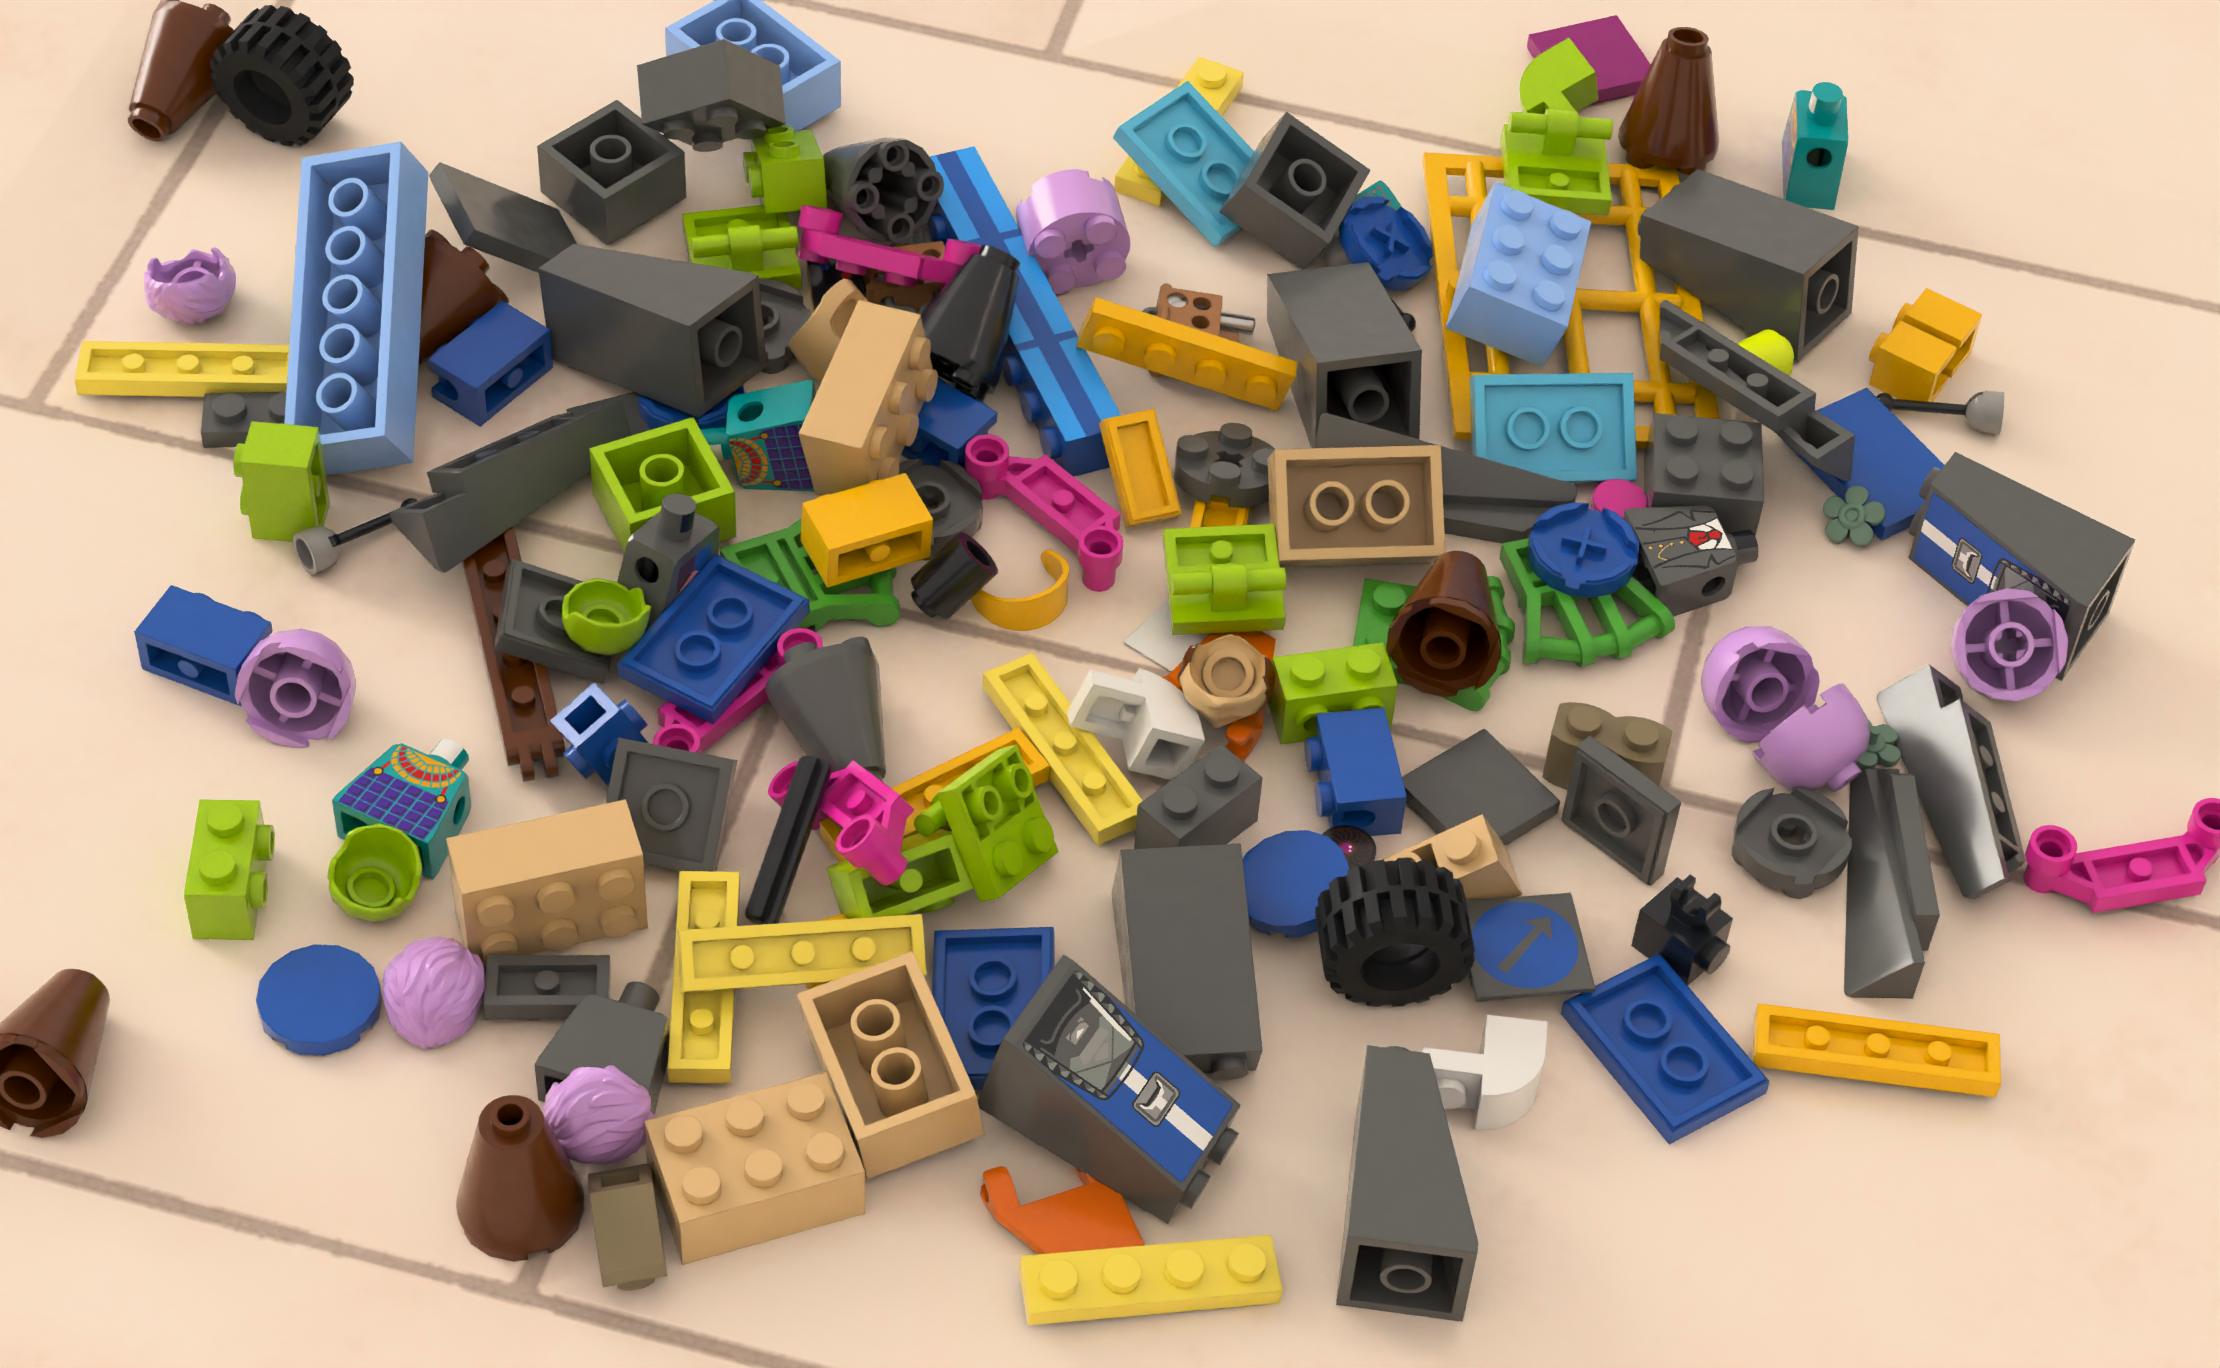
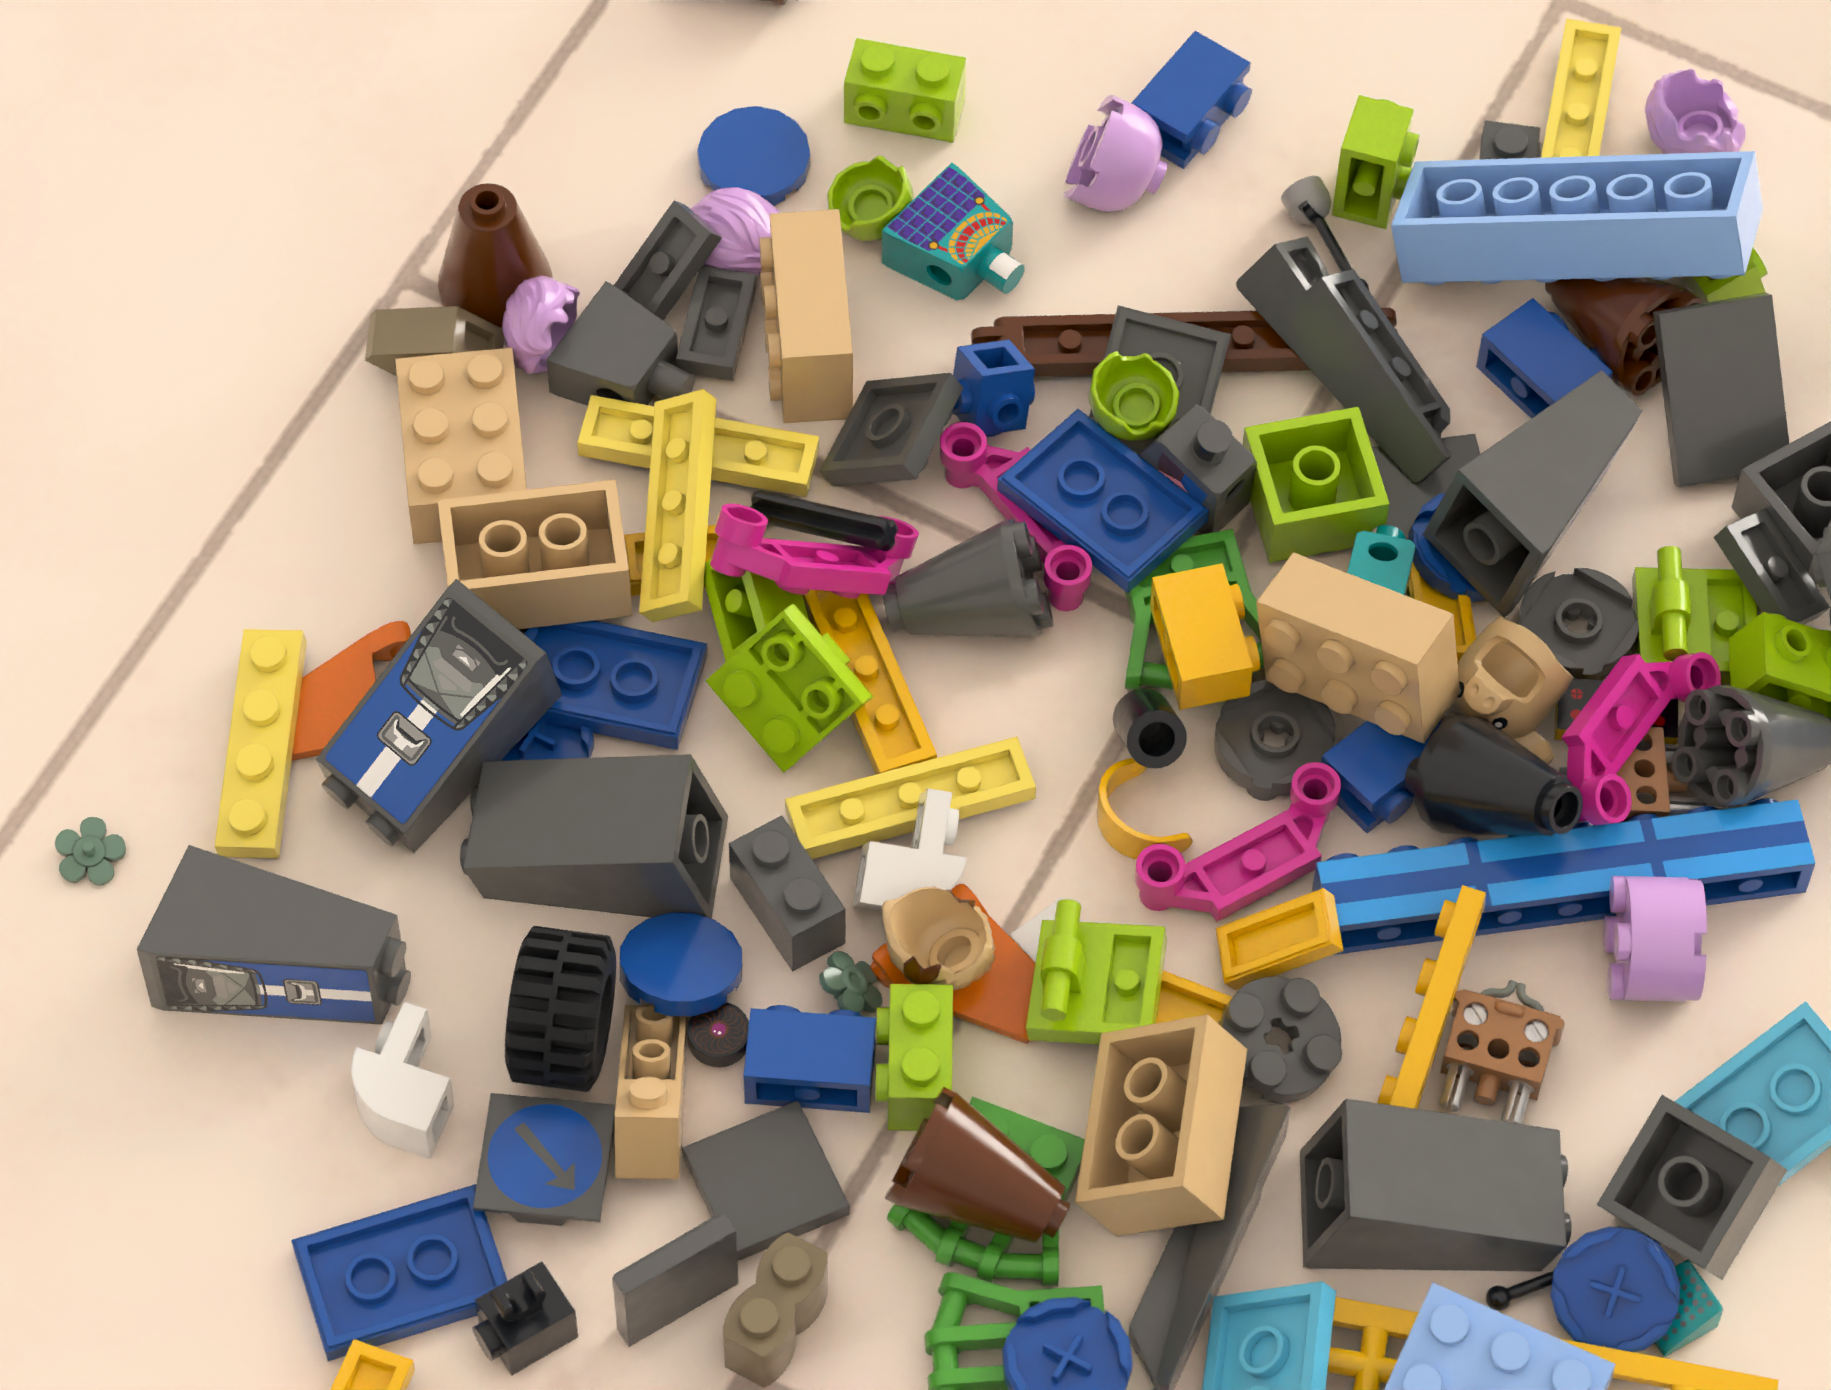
camera: 105 degrees right, 10 degrees up
(493, 1024) = (668, 260): none -> dark grey plate
(692, 191) = (1771, 568): none -> dark grey plate
(1272, 761) = (851, 983): none -> sand green plant

